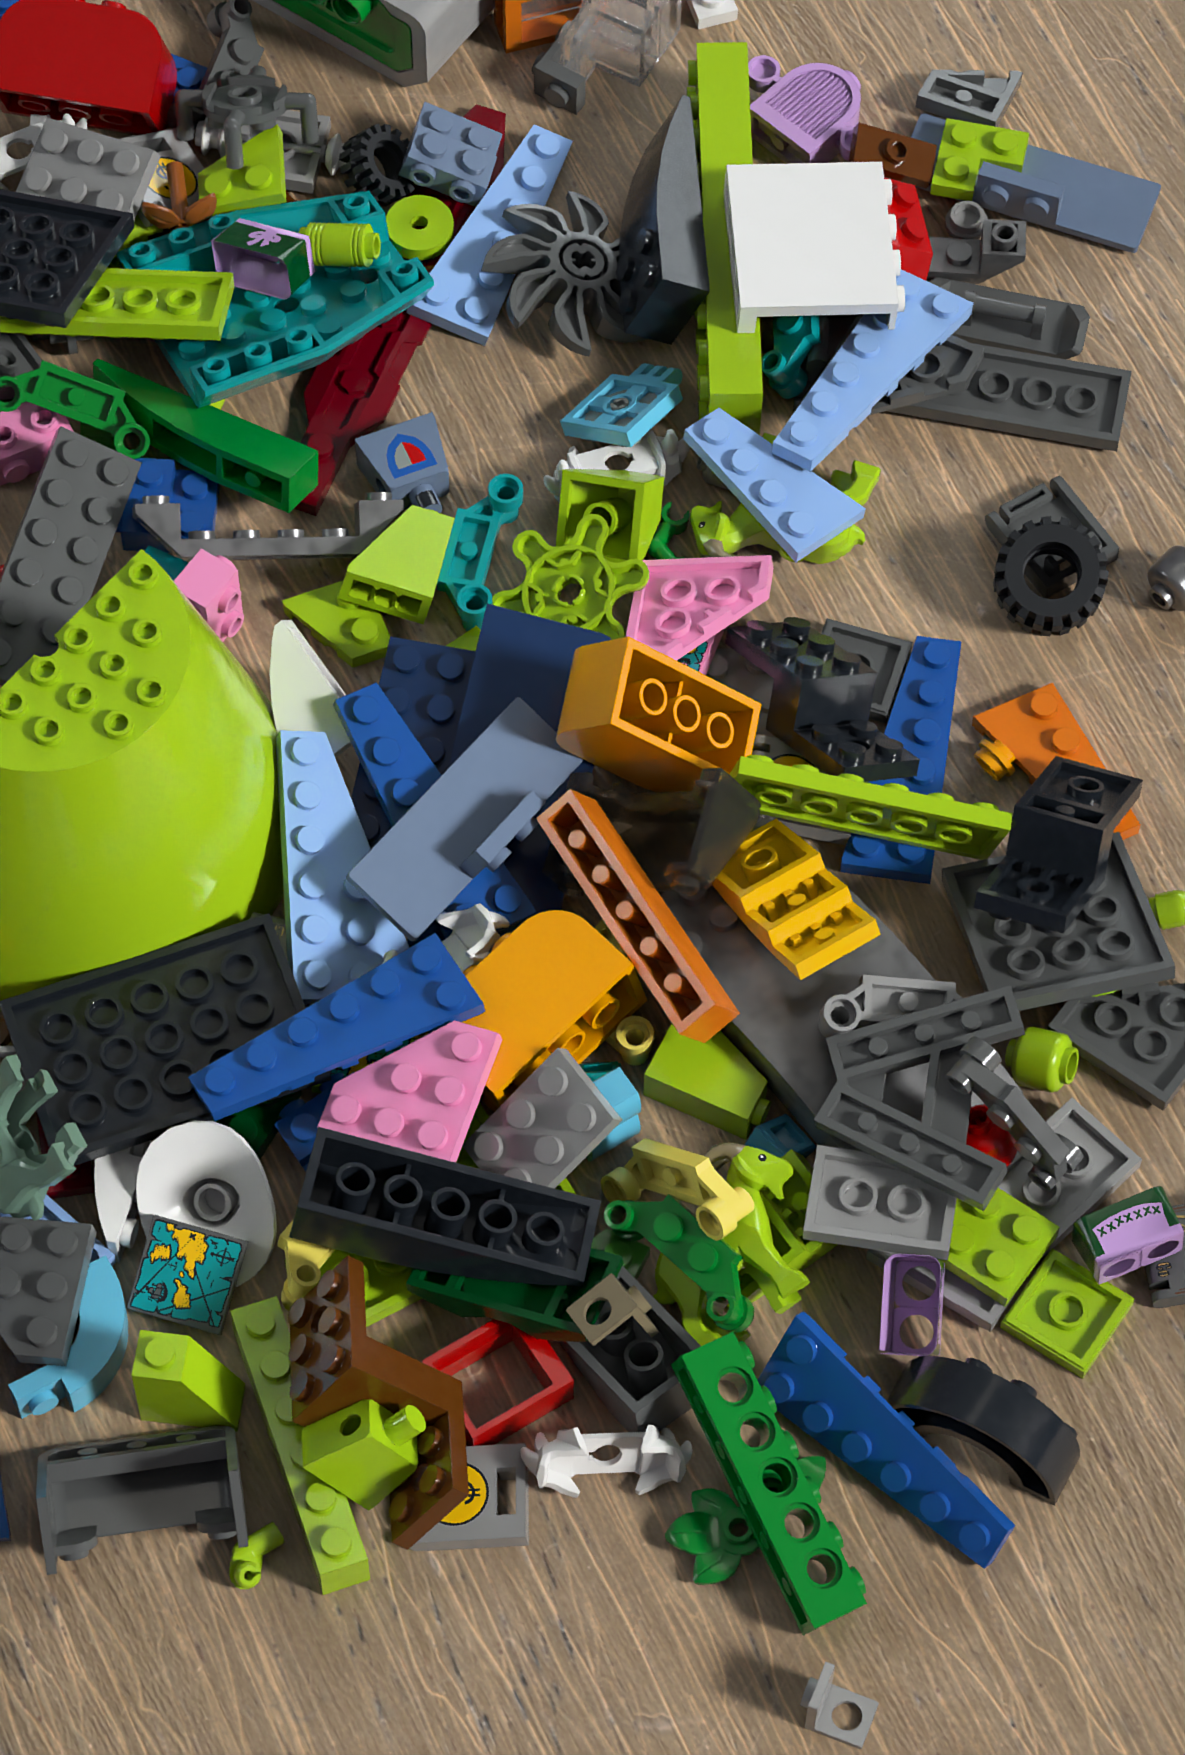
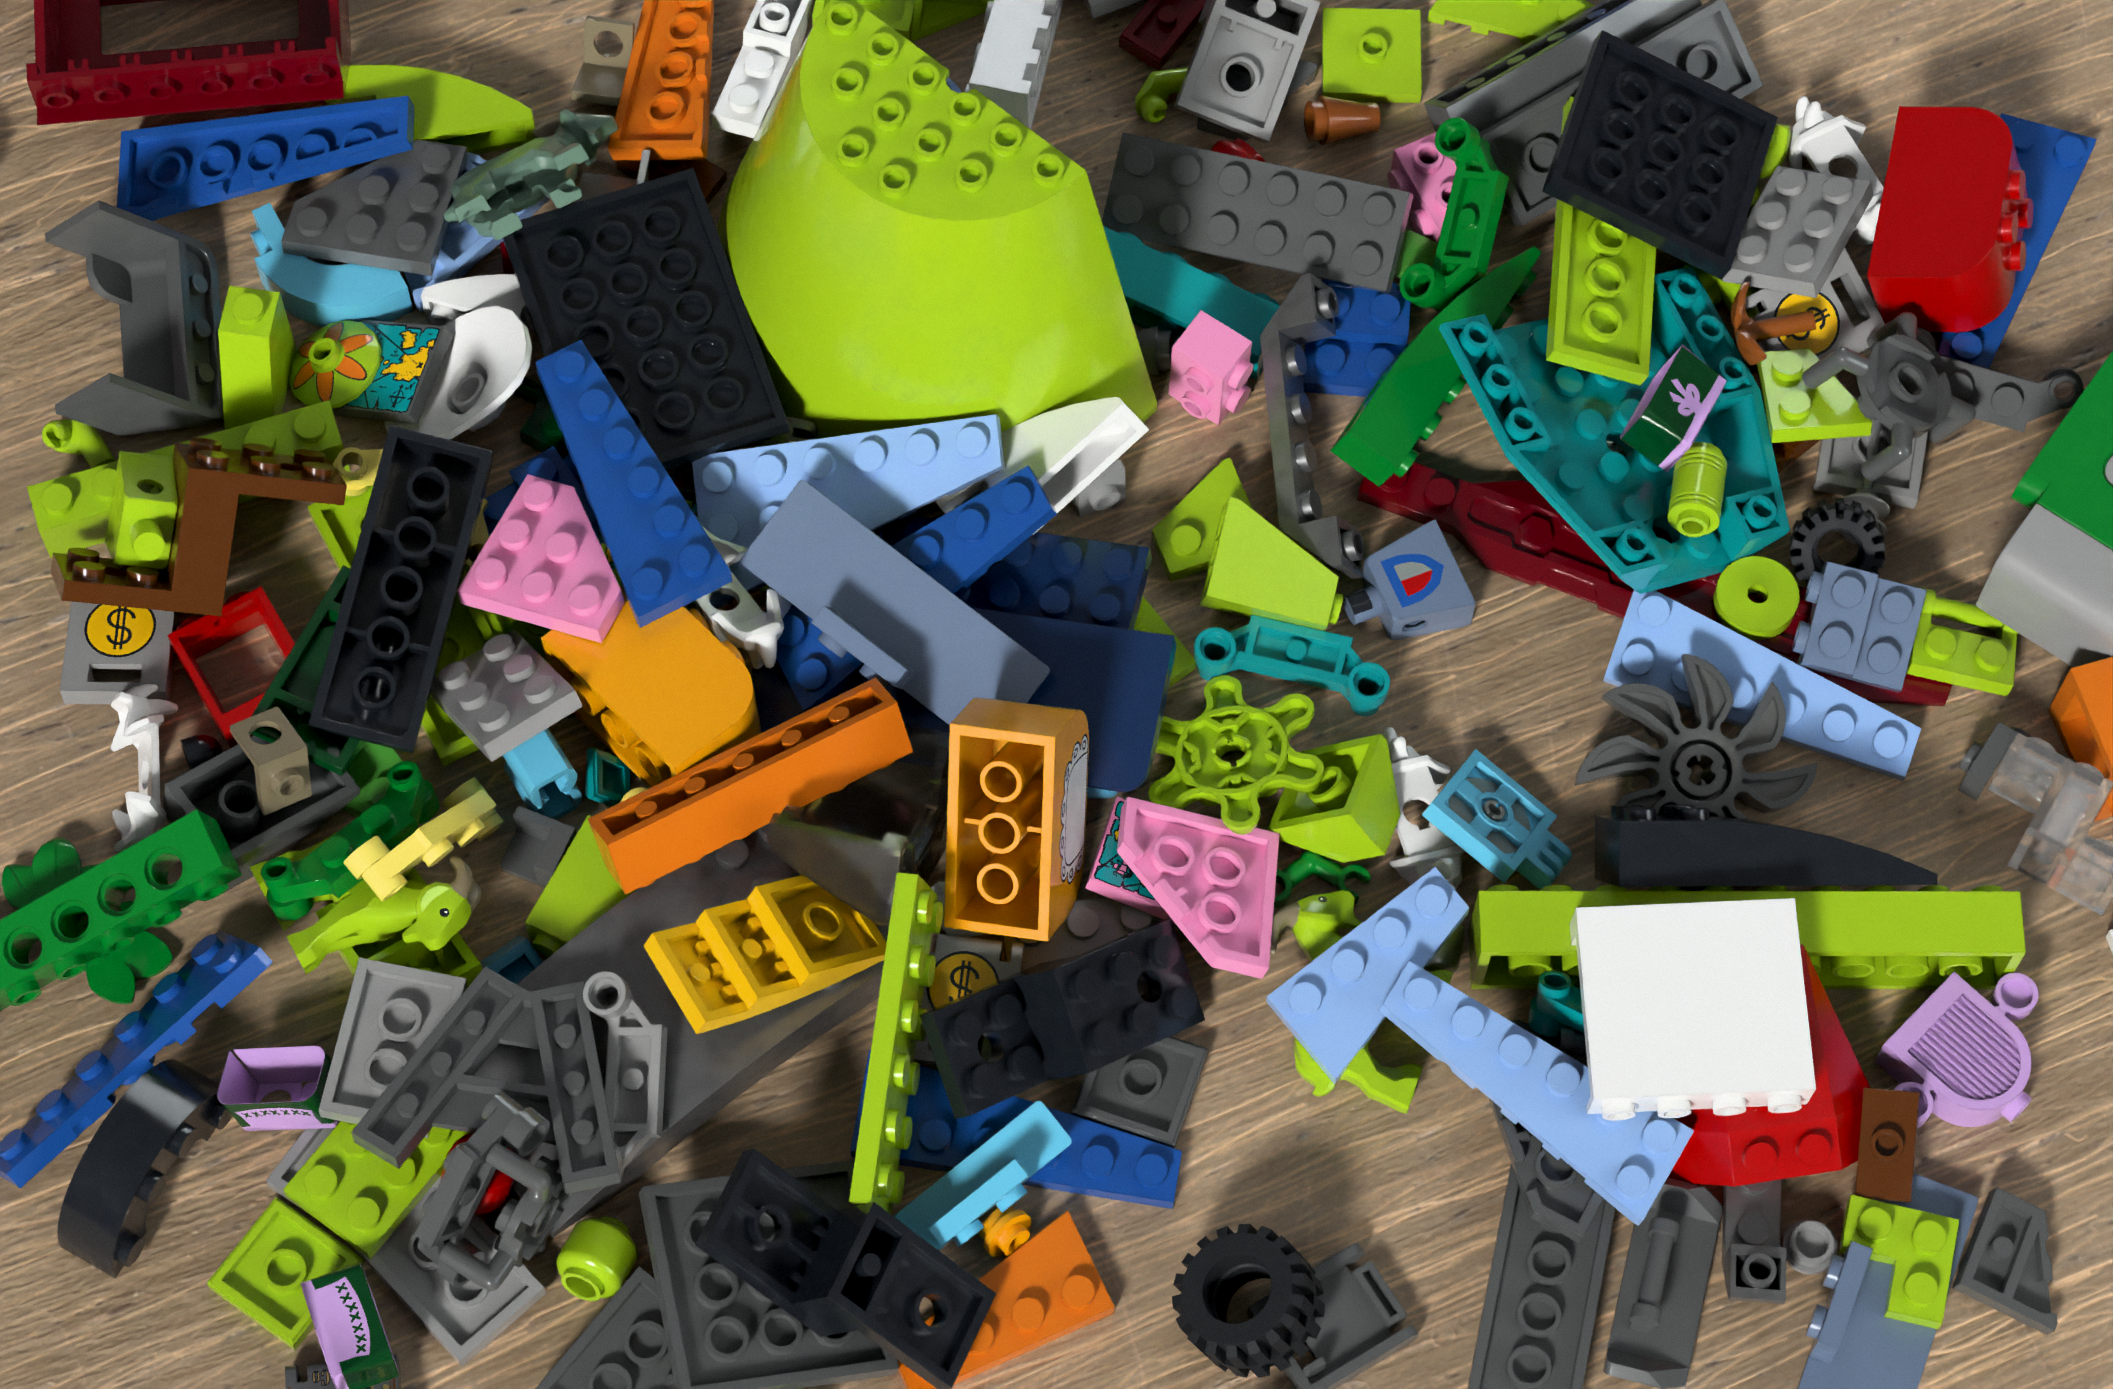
camera: 90 degrees right, 5 degrees up
(181, 1301) = (335, 364): none -> lime dish
(469, 91) = (1959, 655): none -> lime plate
(584, 1414) = (200, 749): none -> black hinge
(670, 1118) = (536, 846): none -> dark grey panel
(963, 757) = (986, 1179): none -> medium azure bracket
(1045, 1091) = (520, 1224): none -> dark grey plate

